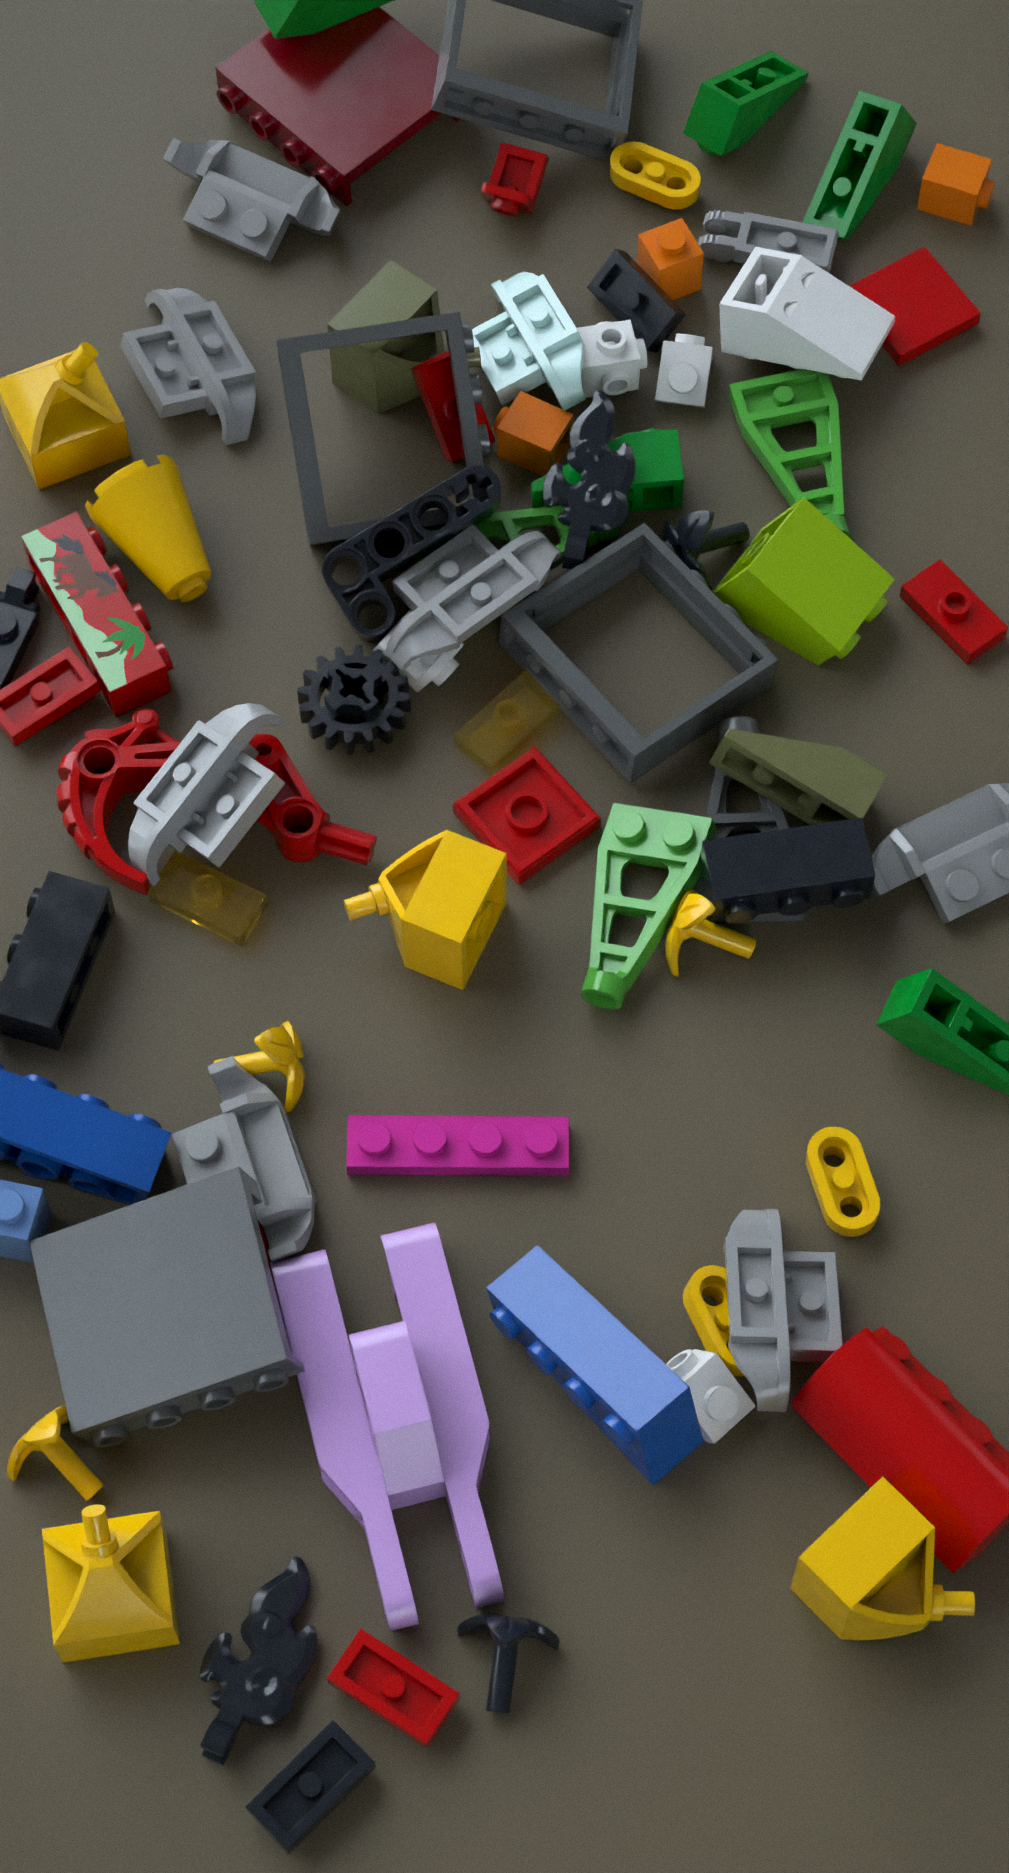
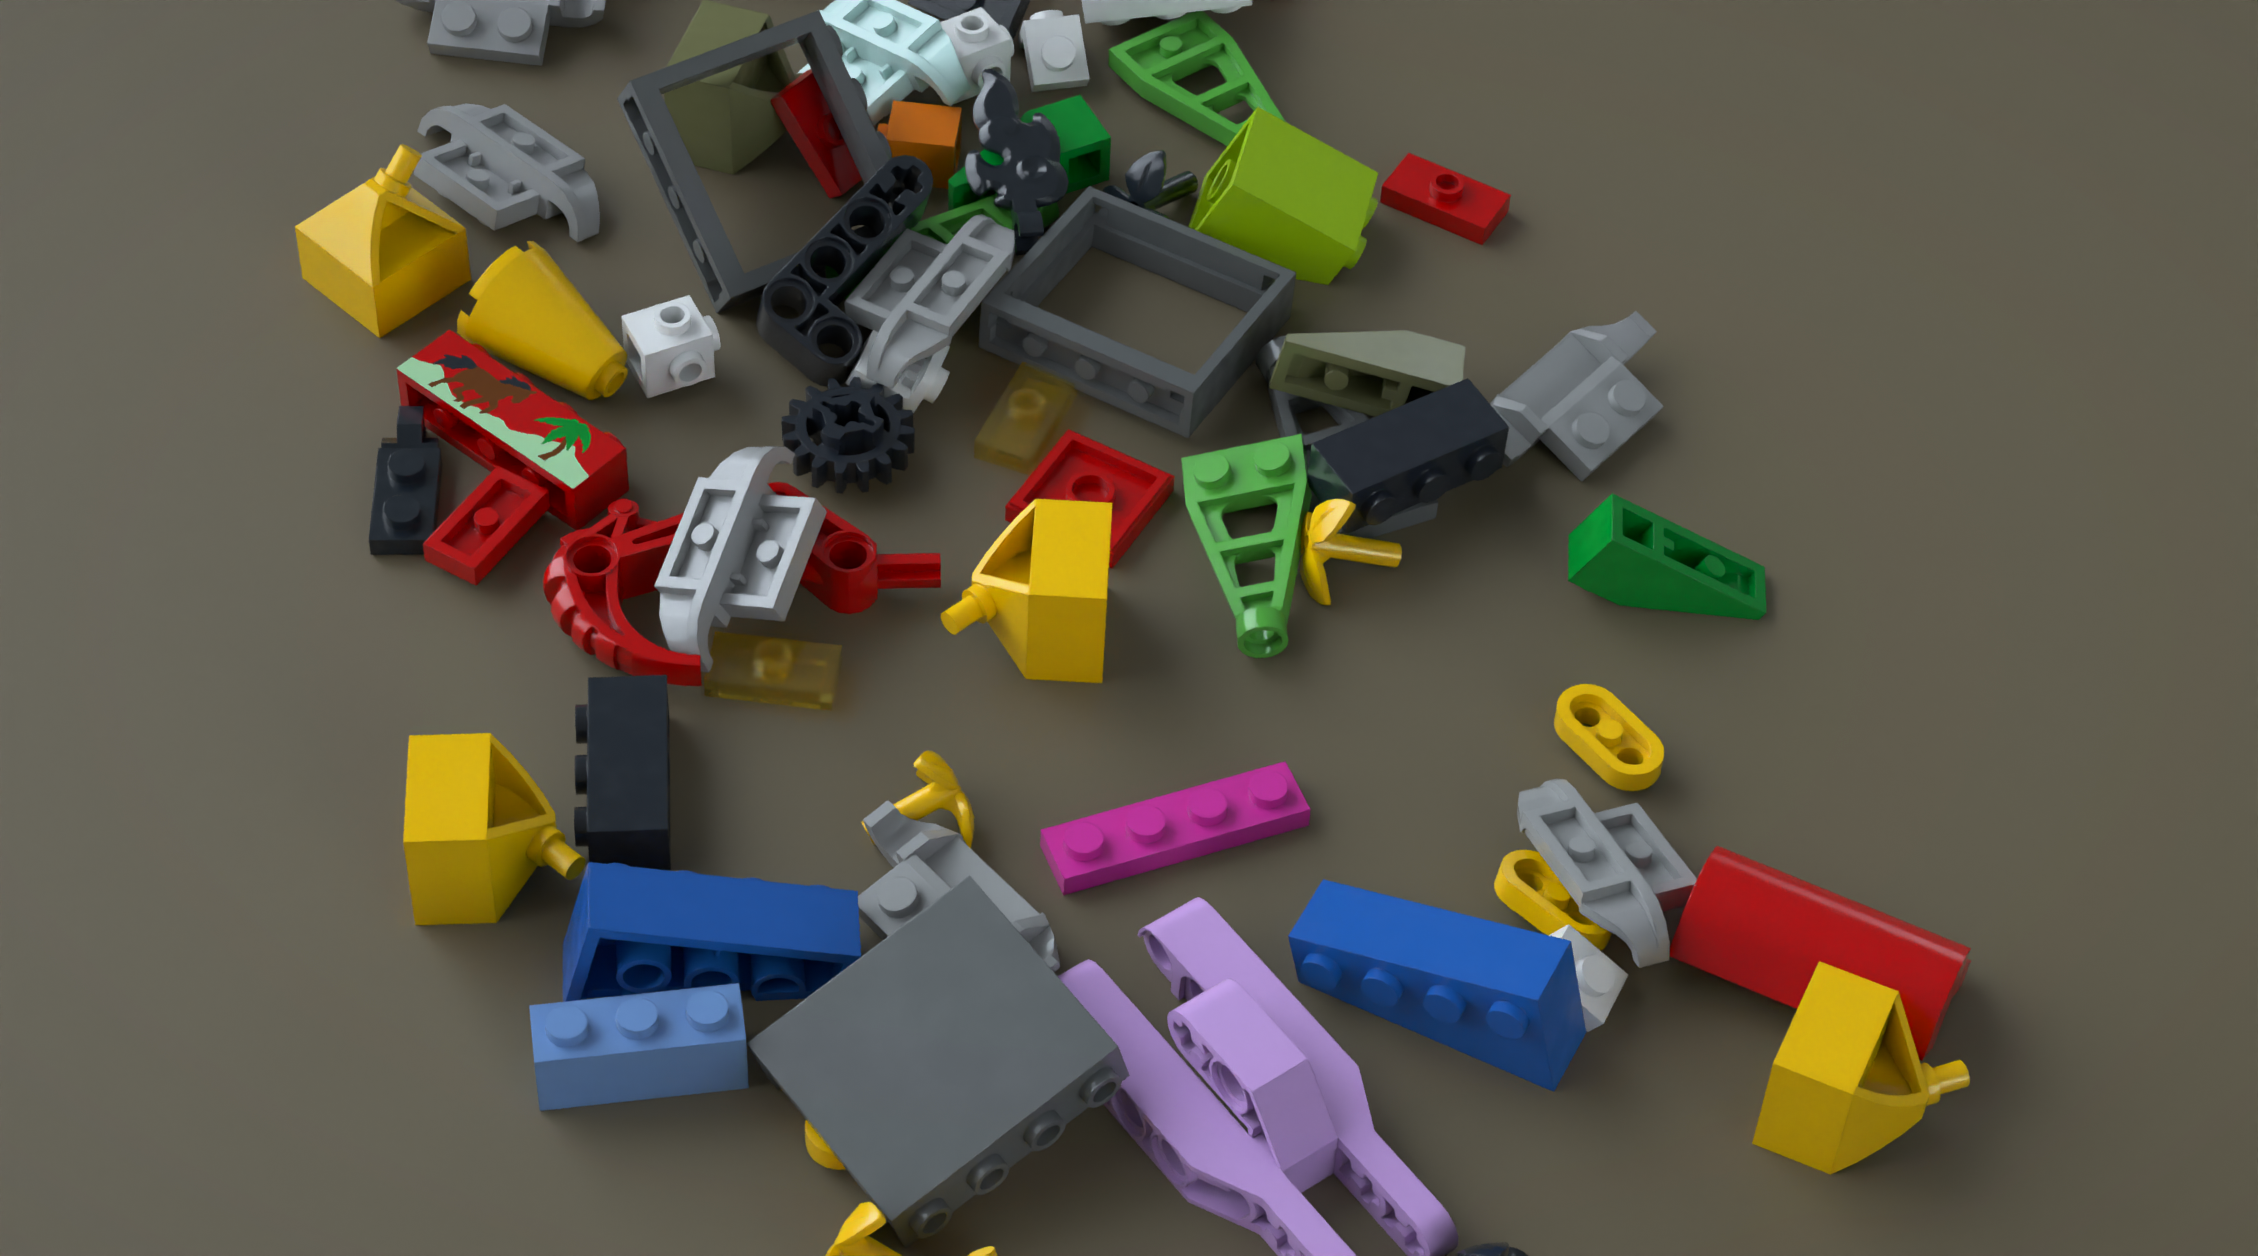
camera: 25 degrees left, 15 degrees down
(246, 574) = (670, 346): none -> white brick

